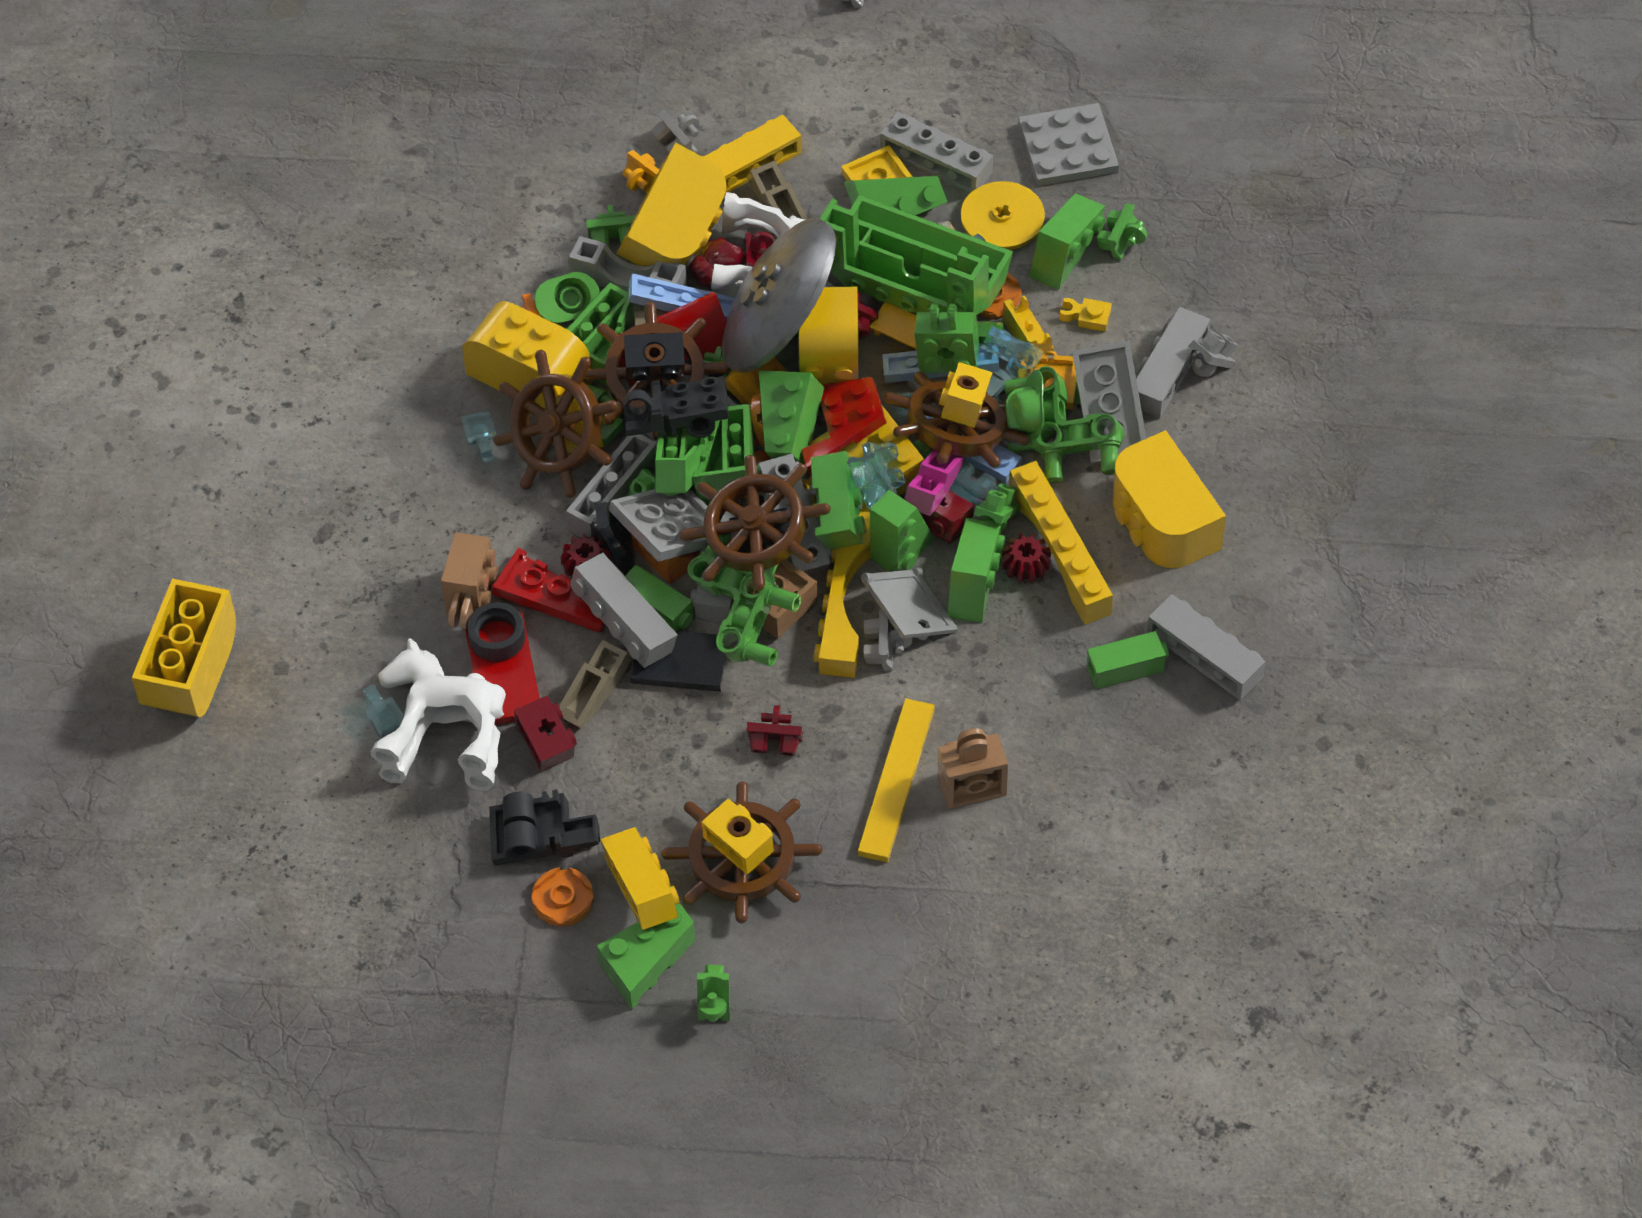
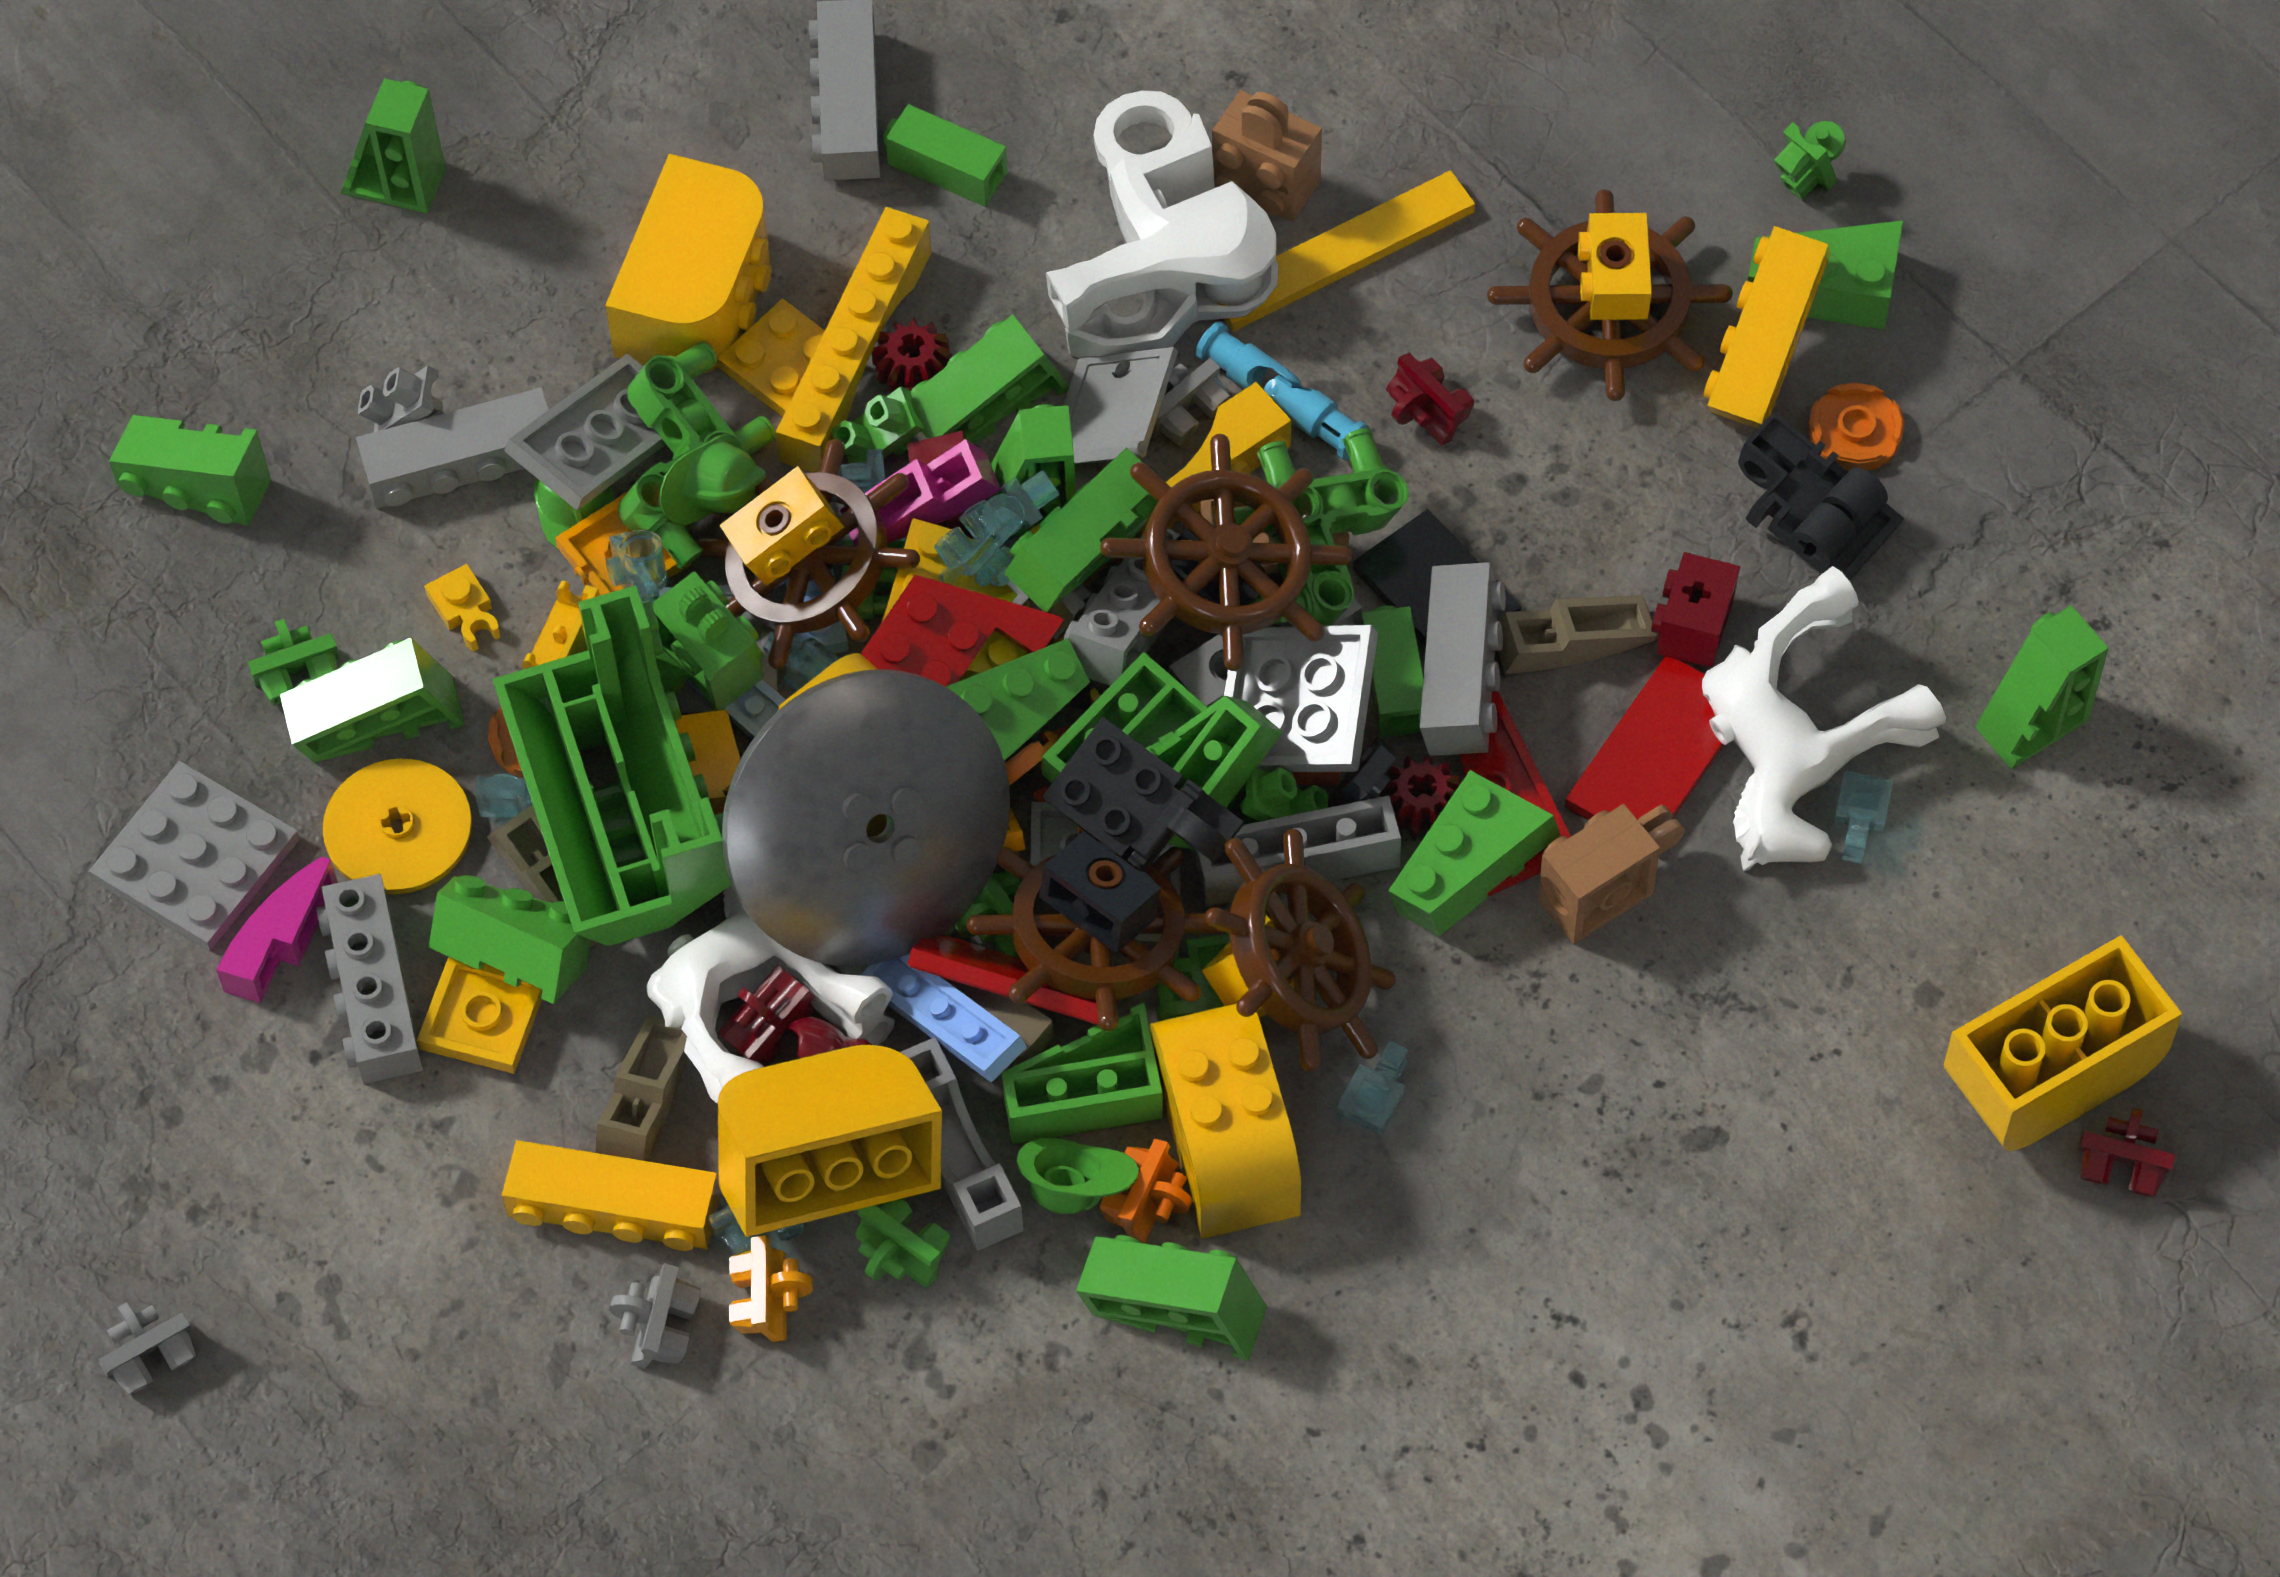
camera: 135 degrees left, 5 degrees up
(121, 659) = (2148, 1163): none -> dark red hips
(338, 815) = (2045, 688): none -> bright green wedge
(474, 289) = (1173, 1288): none -> bright green wedge
(496, 612) = (1634, 746): black tyre -> none
(534, 542) = (1468, 852): none -> bright green wedge
(863, 682) = (1306, 407): none -> medium azure piece
(949, 685) = (1182, 238): none -> white animal
(993, 136) = (276, 932): none -> dark pink slope
(1092, 516) = (773, 355): none -> yellow plate
(1263, 260) = (192, 467): none -> bright green wedge
(1354, 437) = (398, 150): none -> bright green wedge

